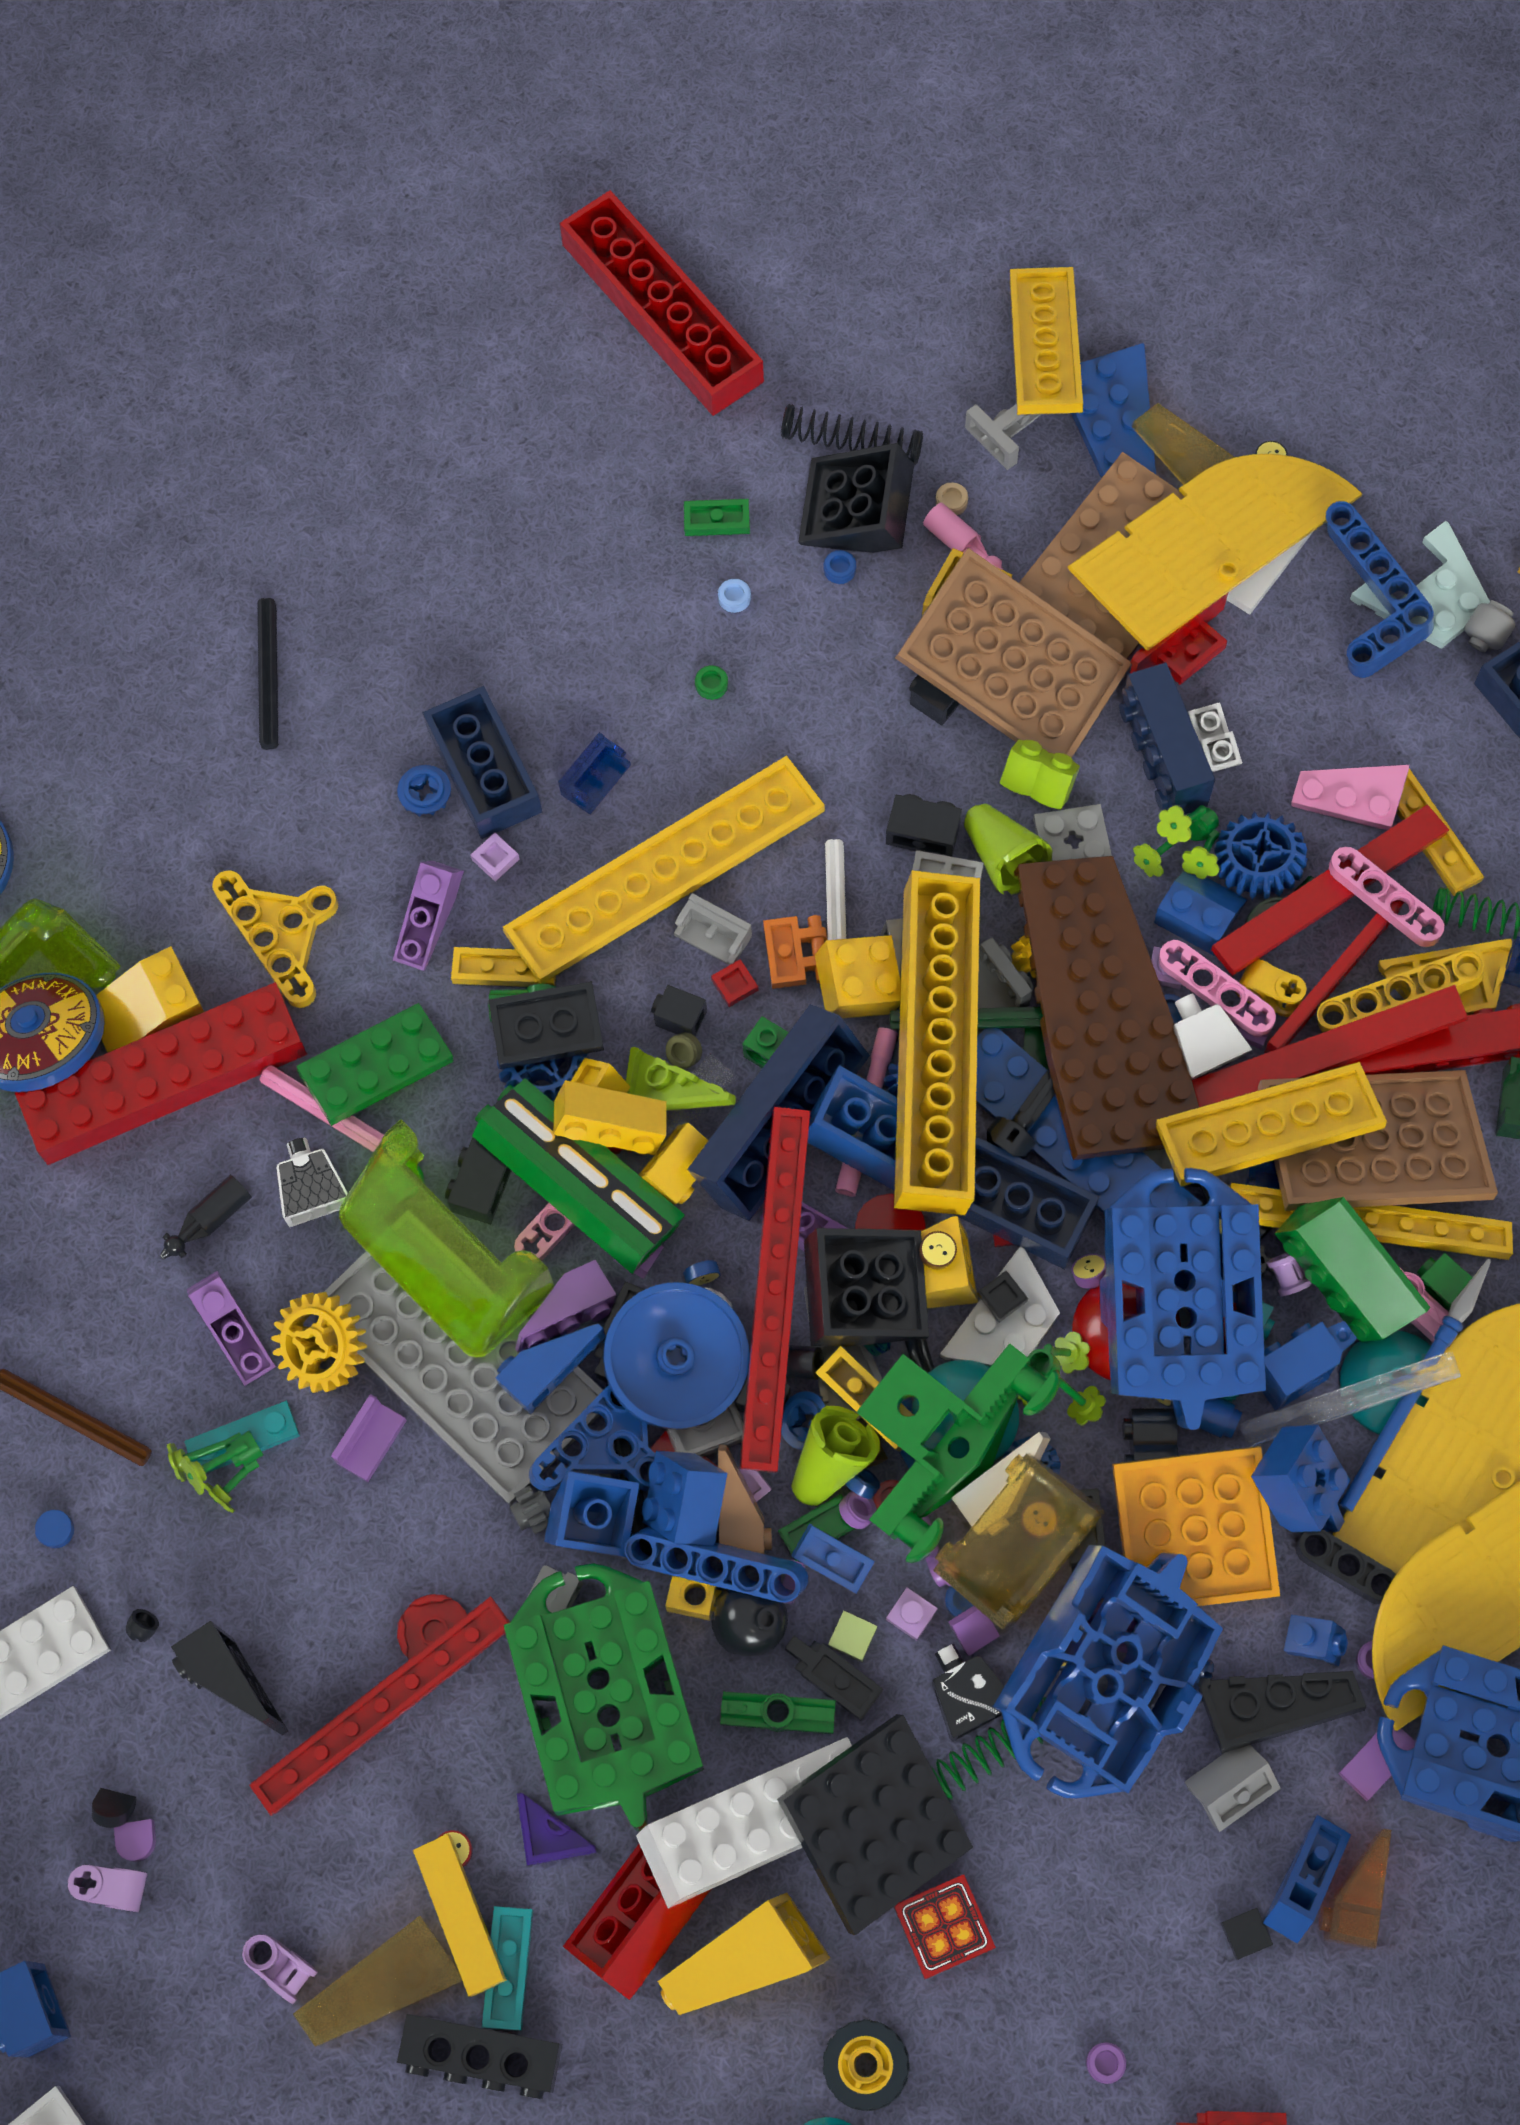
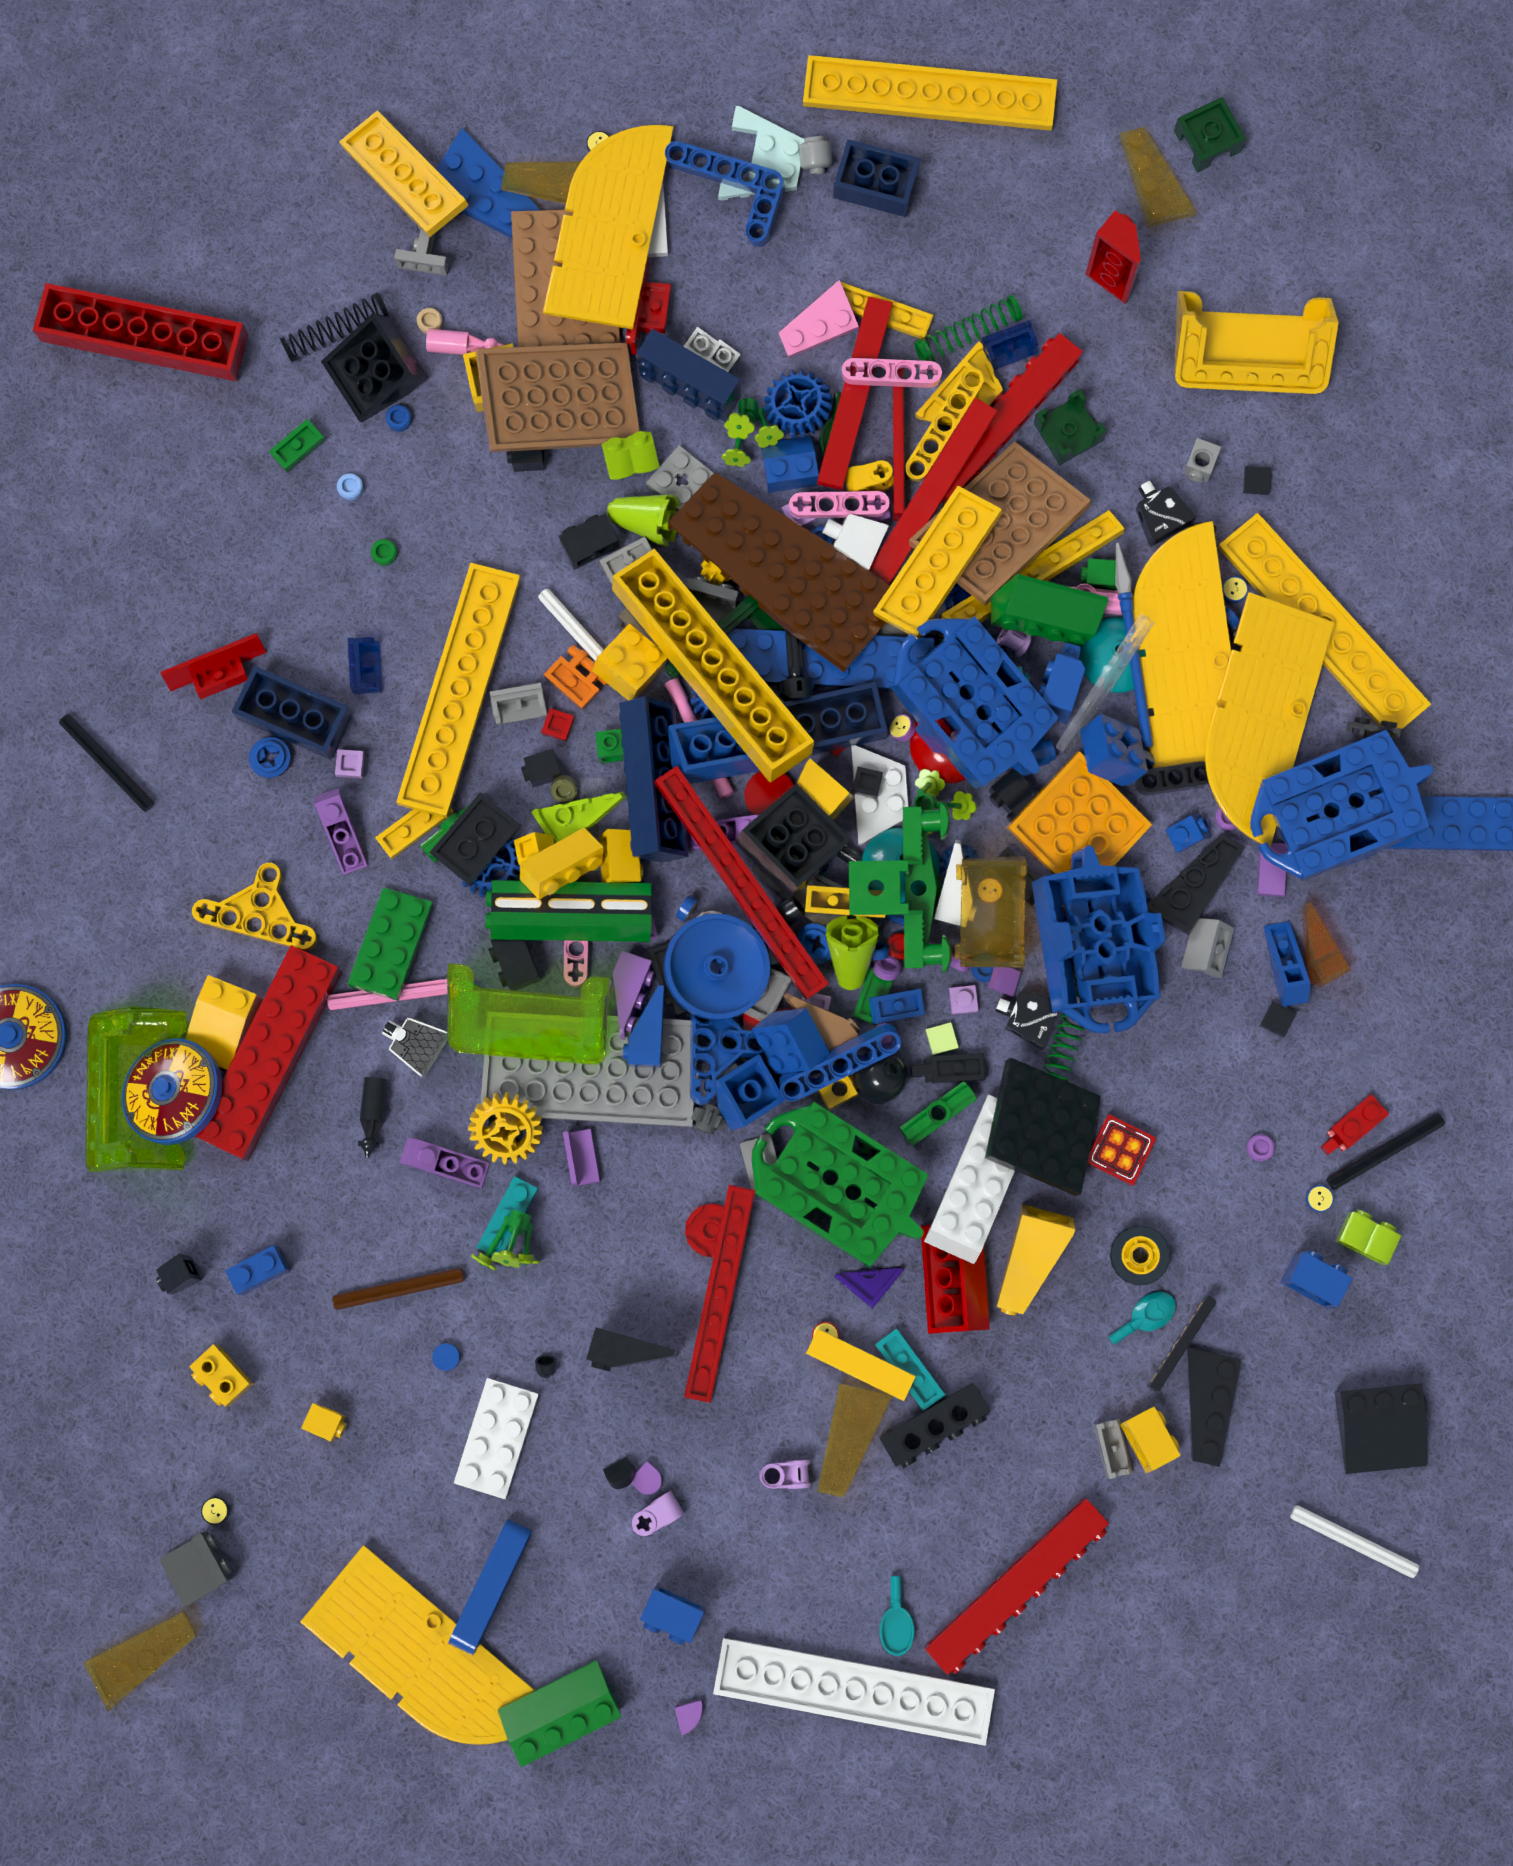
camera: 40 degrees left, 10 degrees up
(449, 665) = (215, 669): none -> red bracket
(937, 1250) = (816, 786): light yellow tile -> none

